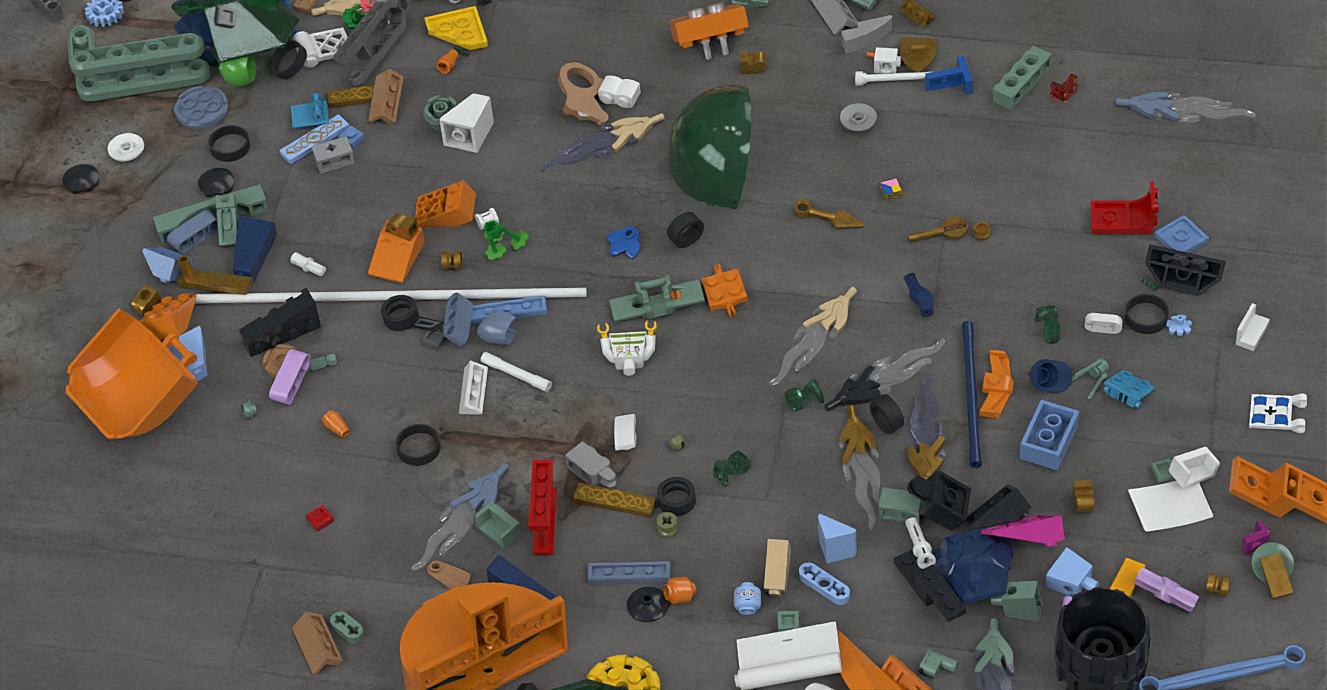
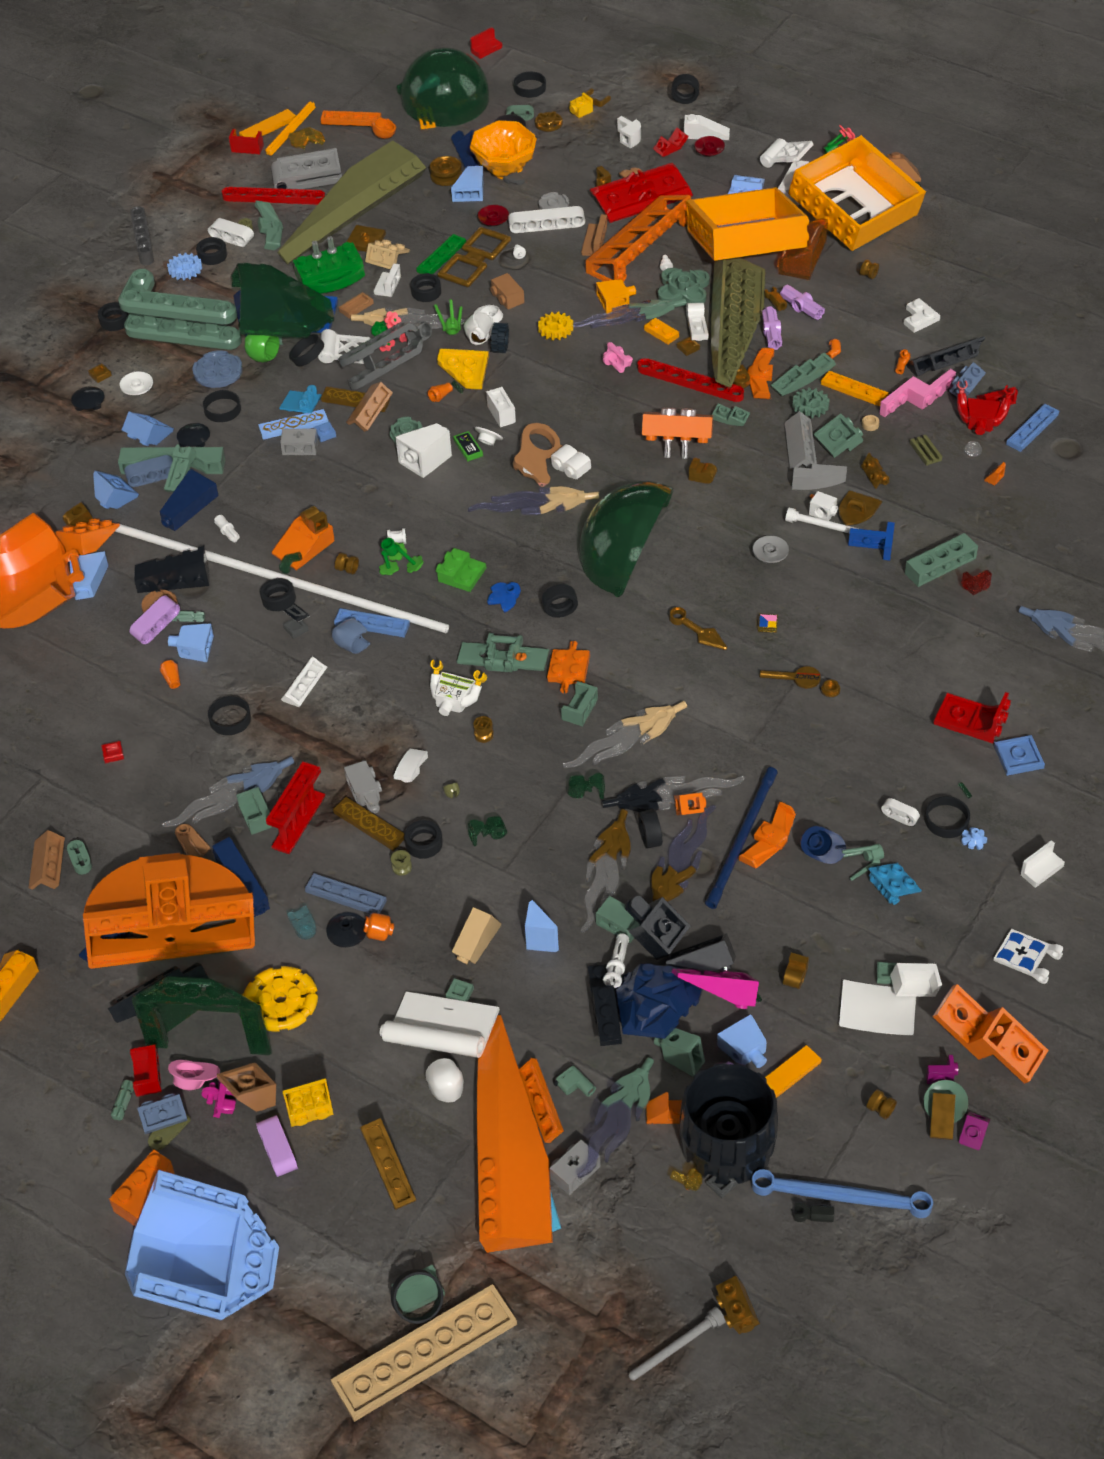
camera: 20 degrees right, 0 degrees up
(63, 93) = (112, 324): none -> black tyre
(77, 148) = (100, 373): none -> pearl gold tile
(164, 190) = (145, 428): none -> medium blue slope
(210, 280) = (139, 516): pearl gold piece -> none
(226, 16) = (258, 294): tile -> none
(249, 410) = (107, 637): sand green plate -> none
(340, 385) = (193, 641): none -> light blue torso
(391, 275) = (287, 560): none -> clear green arm
(446, 206) = (368, 515): orange slope -> none
(457, 319) = (322, 616): sand blue beam -> none
(507, 107) = (468, 446): none -> tile
(519, 58) = (501, 407): none -> white panel
(523, 91) = (487, 436): none -> white piece
(534, 380) = (359, 692): white piece -> none
(567, 231) = (460, 570): none -> bright green plate
(608, 615) = (305, 927): none -> clear light blue plate
(676, 375) = (483, 729): none -> pearl gold wheel
(747, 598) = (434, 956): light blue head -> none
(755, 321) = (581, 704): none -> sand green panel
(828, 591) = (512, 976): light blue beam -> none
(909, 379) = (681, 803): none -> orange brick
(920, 295) = (740, 729): dark blue arm -> none
(1031, 658) = (663, 1111): none -> orange slope
(1049, 435) = (791, 900): medium blue brick -> none
(1051, 324) = (848, 800): clear green leg -> none
(1166, 589) = (828, 1090): lavender piece -> none
(1183, 270) = (1001, 787): black wedge -> none
(1308, 579) = (974, 1130): none -> magenta bracket

